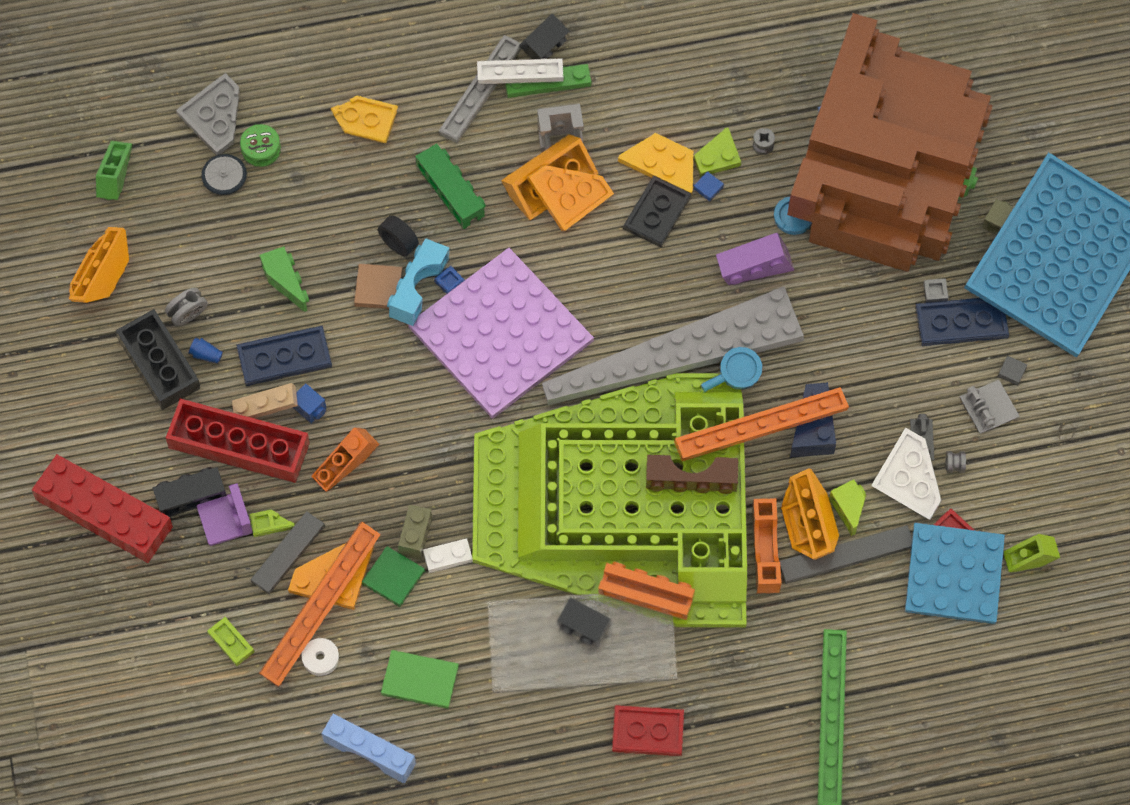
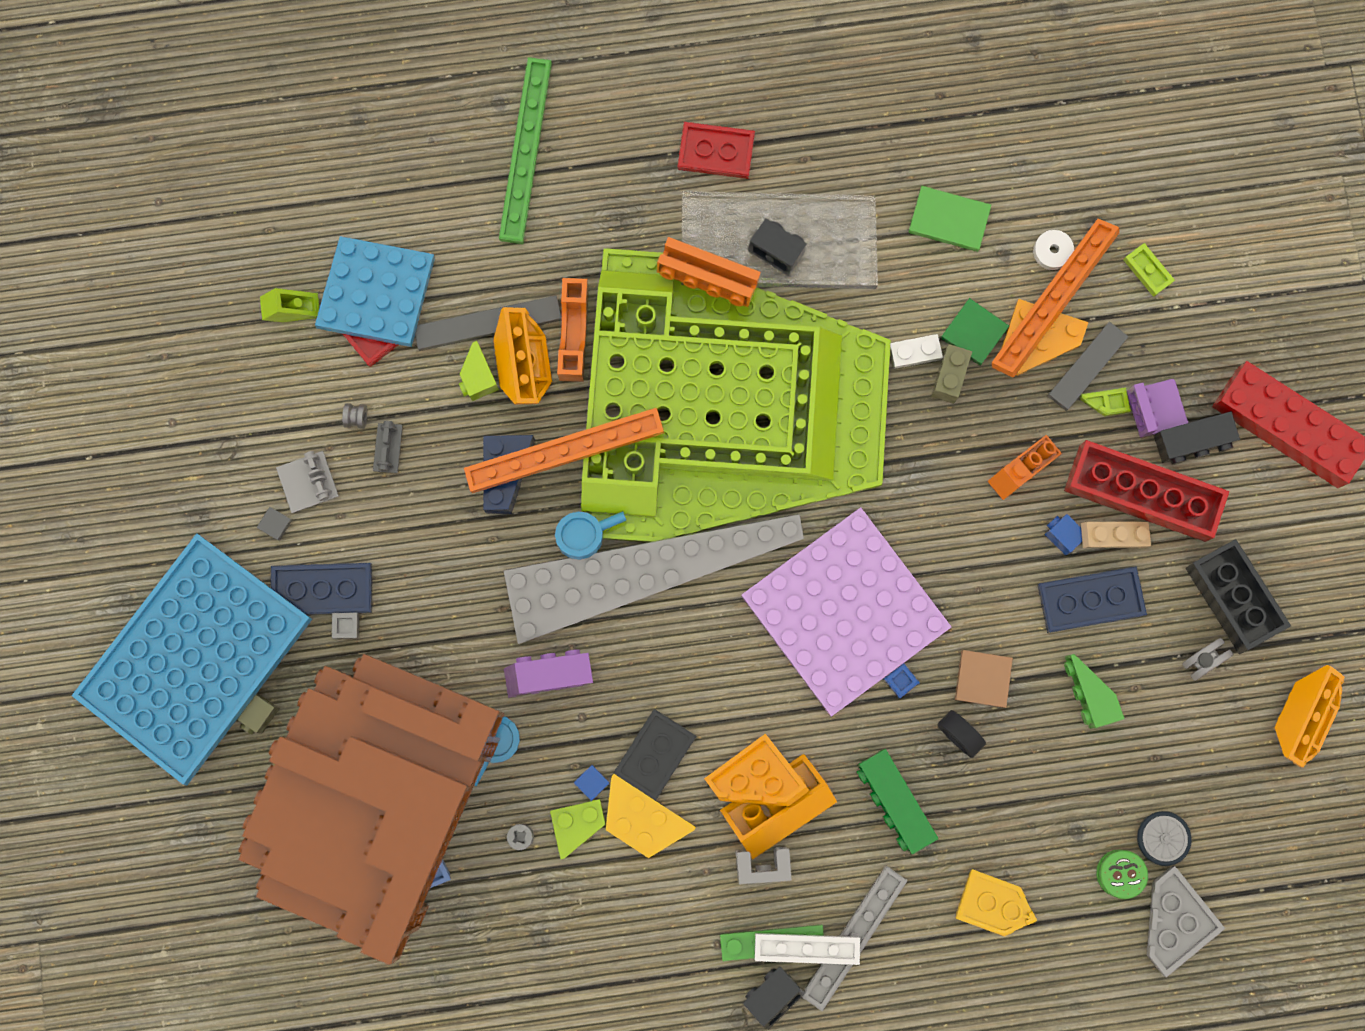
camera: 175 degrees left, 15 degrees up
(113, 170) = (1297, 851): bright green slope -> none
(205, 351) = (1183, 608): blue cone -> none
(351, 738) = (1027, 155): light blue arch -> none
(428, 261) = (926, 703): medium azure arch -> none
(664, 474) = (617, 389): reddish brown arch -> none
(910, 475) = (407, 399): white plate -> none

